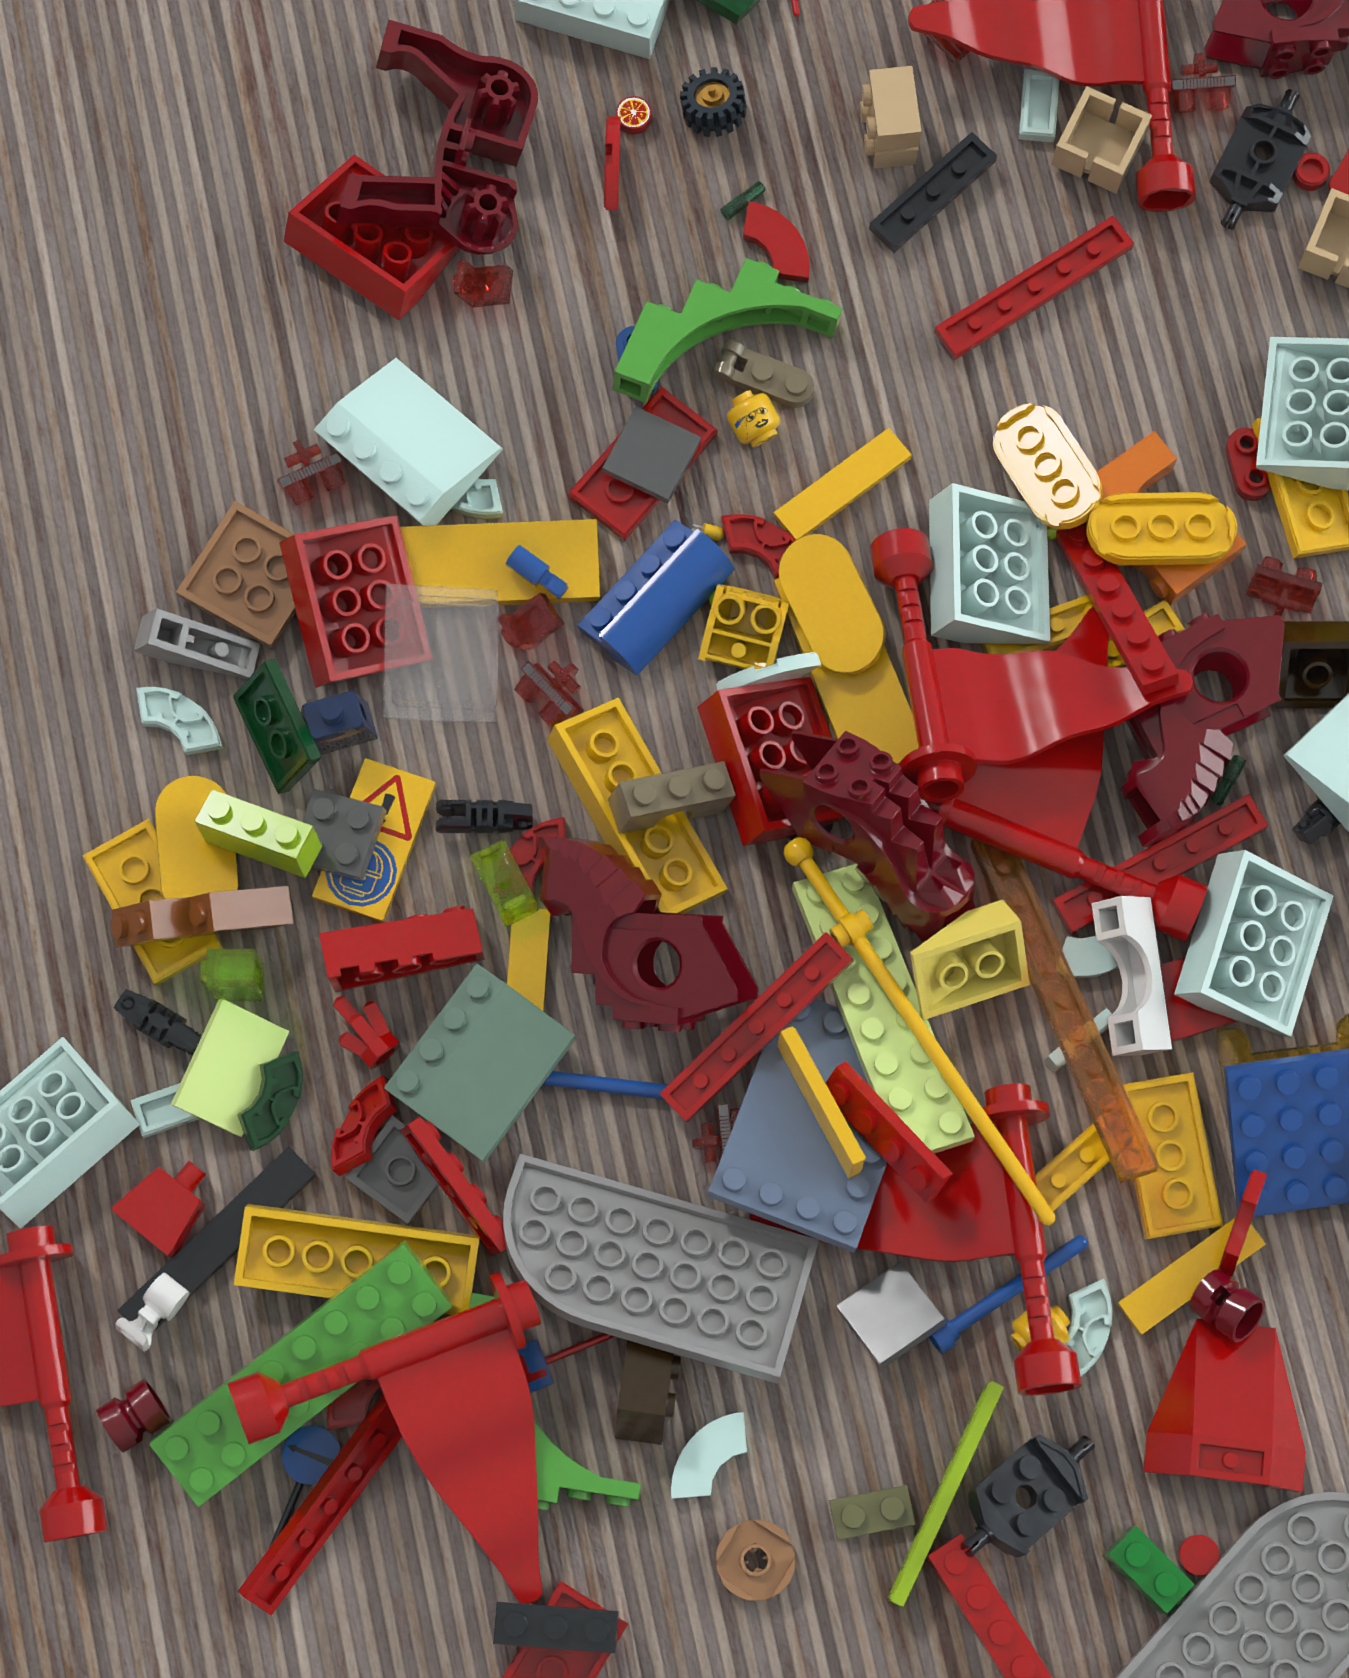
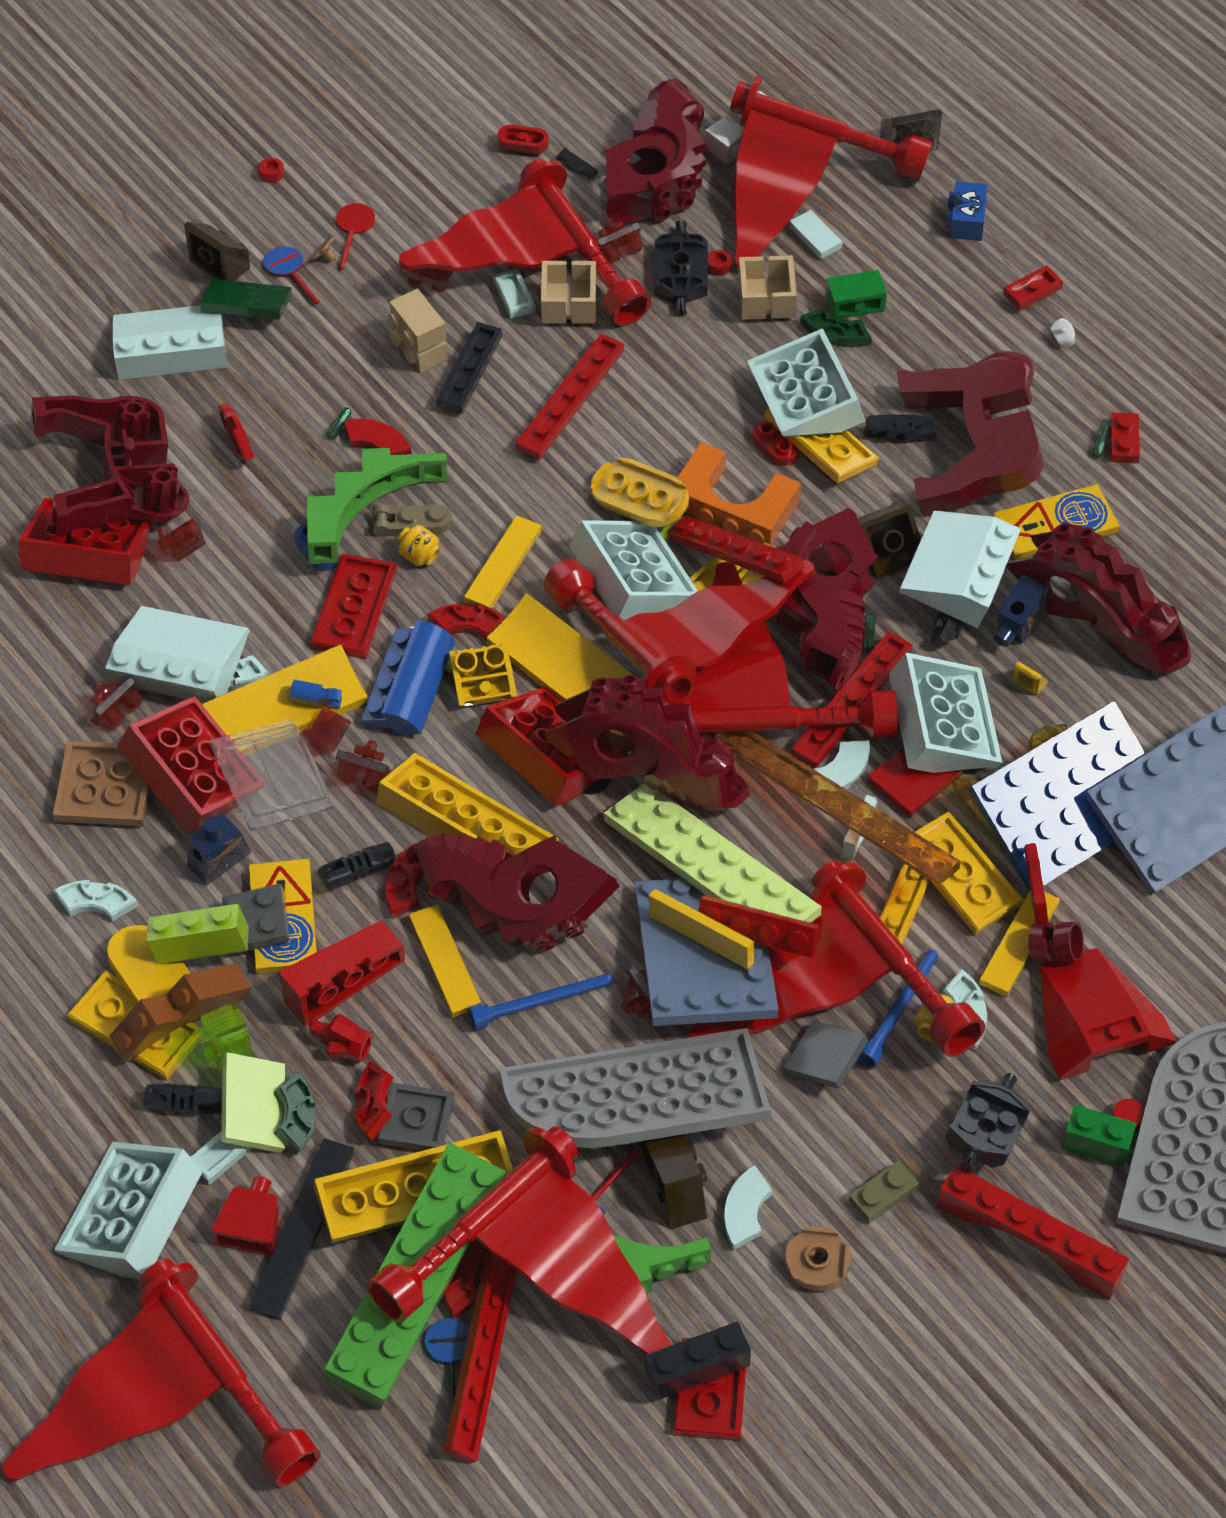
camera: 25 degrees left, 20 degrees down
(132, 1416) = (303, 1362): dark red wheel -> none
(161, 1301) = (281, 1277): white leg -> none
(195, 645) = (82, 843): light grey slope -> none
(276, 726) = (174, 865): dark green tile -> none
(447, 1172) = (463, 1101): red plate -> none
(480, 1062) = (439, 1016): sand green slope -> none
(504, 883) = (396, 899): clear neon green slope -> none
(634, 114) = (237, 400): red tile -> none
(646, 800) = (470, 797): dark tan arch -> none
(651, 454) = (358, 594): dark grey tile -> none
(713, 102) = (287, 371): black wheel -> none
(756, 1027) = (628, 908): red plate -> none
(785, 669) = (528, 681): light aqua tile -> none
(832, 604) = (537, 630): yellow tile -> none
(852, 930) = (663, 817): yellow bar -> none
(945, 1494) = (929, 1154): lime tile -> none
(970, 960) = (758, 800): light yellow slope -> none
(1129, 933) = (892, 787): white arch -> none
(1161, 528) = (738, 493): yellow tile -> none
(1284, 589) = (834, 501): clear red hips -> none

